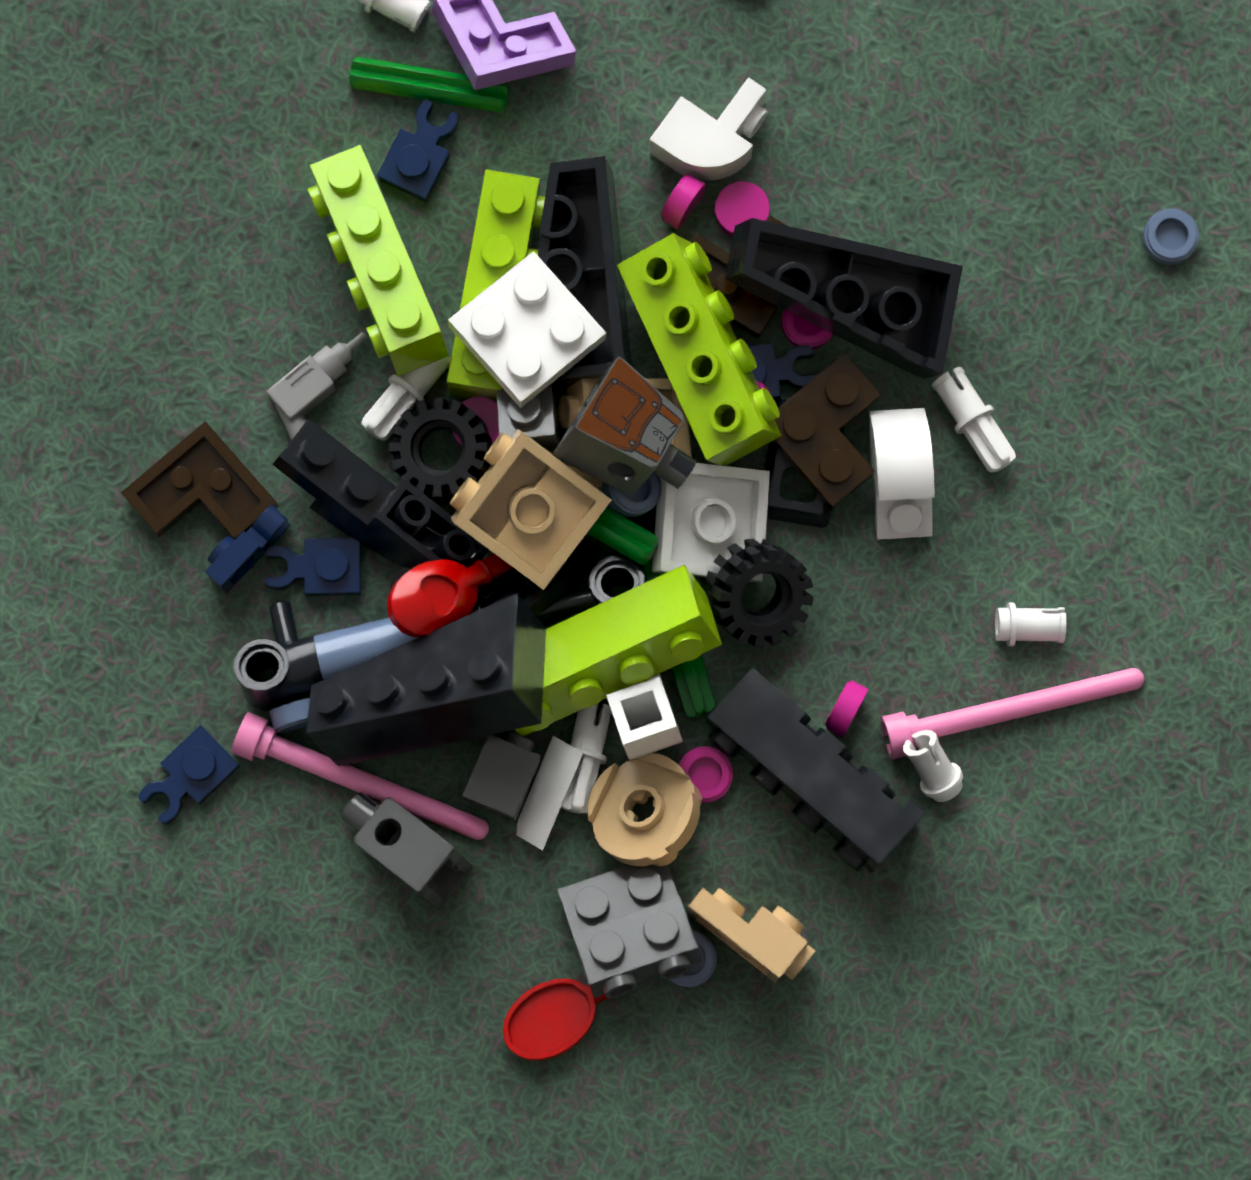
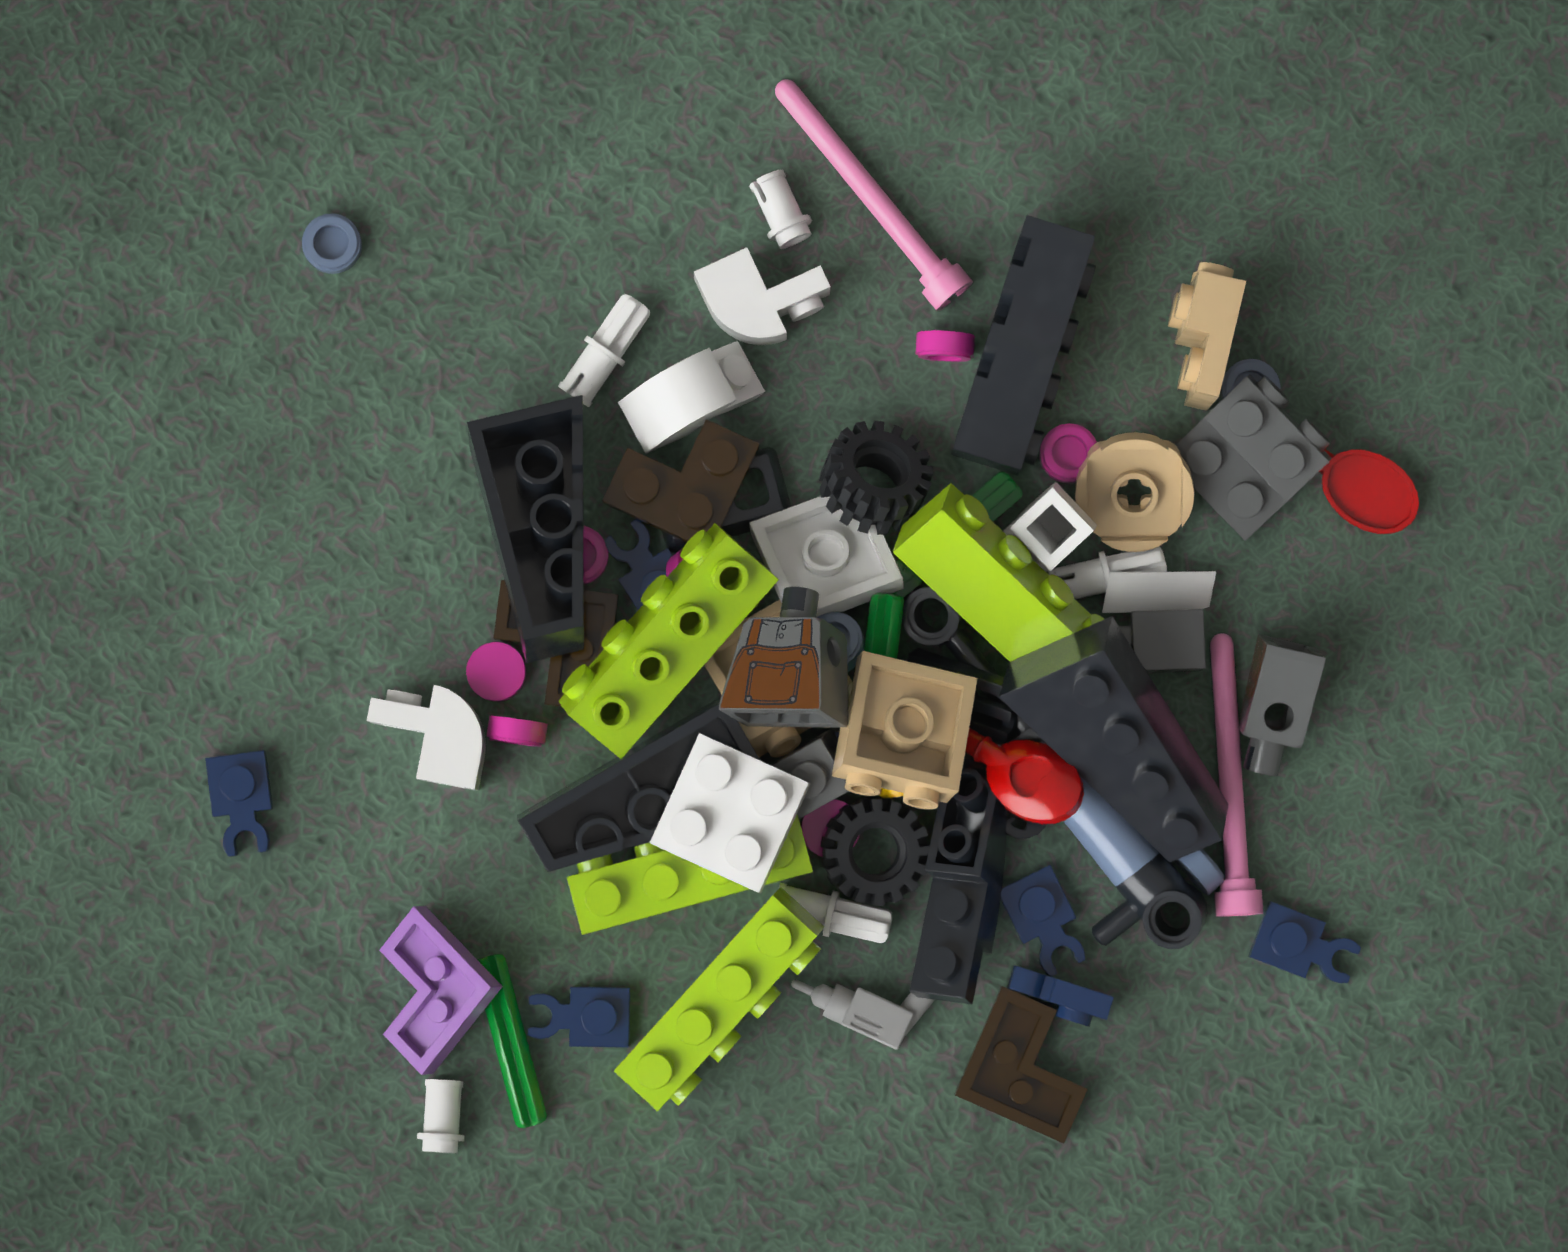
camera: 120 degrees left, 5 degrees up
(938, 775) = (967, 230): white pin -> none
(959, 553) = (749, 310): none -> white brick

